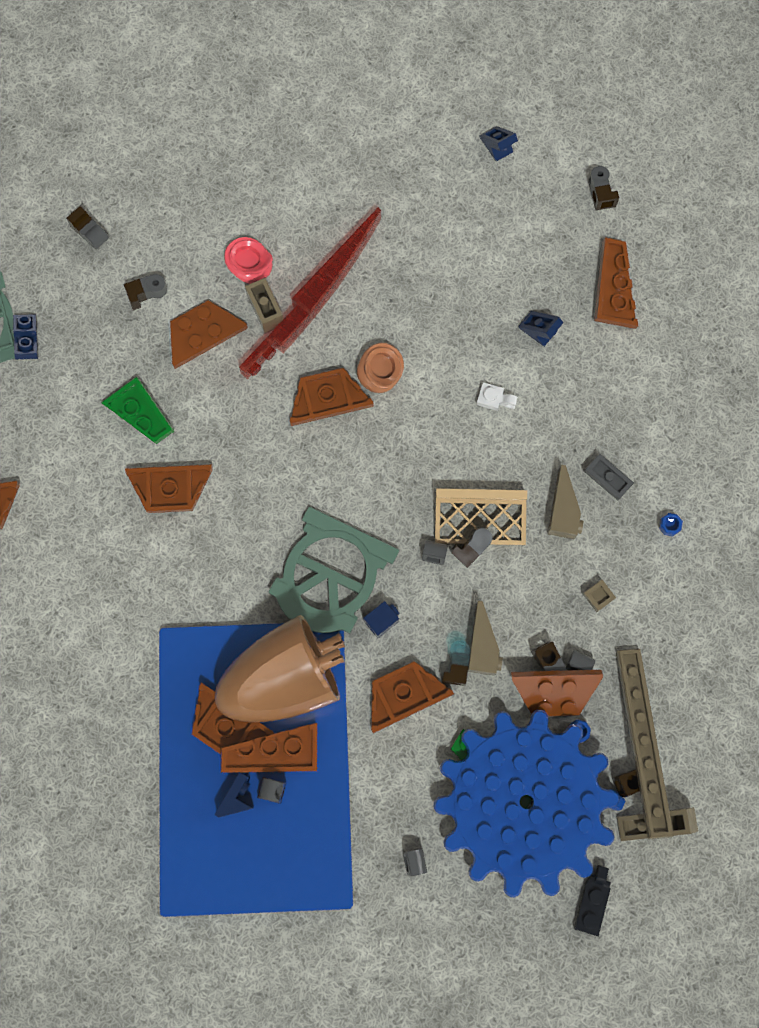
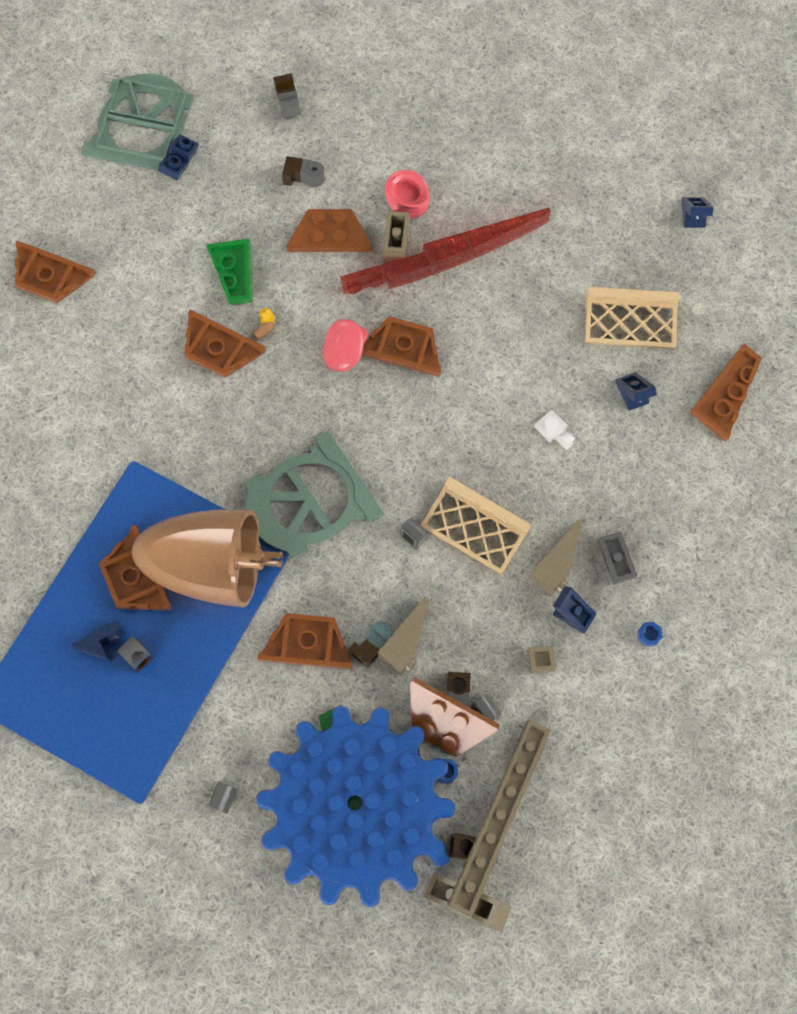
camera: 30 degrees right, 5 degrees down
(199, 444) = (267, 324): none -> arm
(276, 752) = (163, 624): dark orange wing -> none
(278, 425) = (344, 345): none -> coral piece
(380, 368) = (466, 346): nougat piece -> none
(382, 619) = (329, 564): dark blue brick -> none
(473, 548) = (459, 545): leg -> none
(488, 252) = (631, 298): none -> tan fence
(593, 902) = (362, 938): black hinge -> none
(600, 189) = (765, 304): leg -> none
(600, 540) = (573, 610): none -> dark blue slope

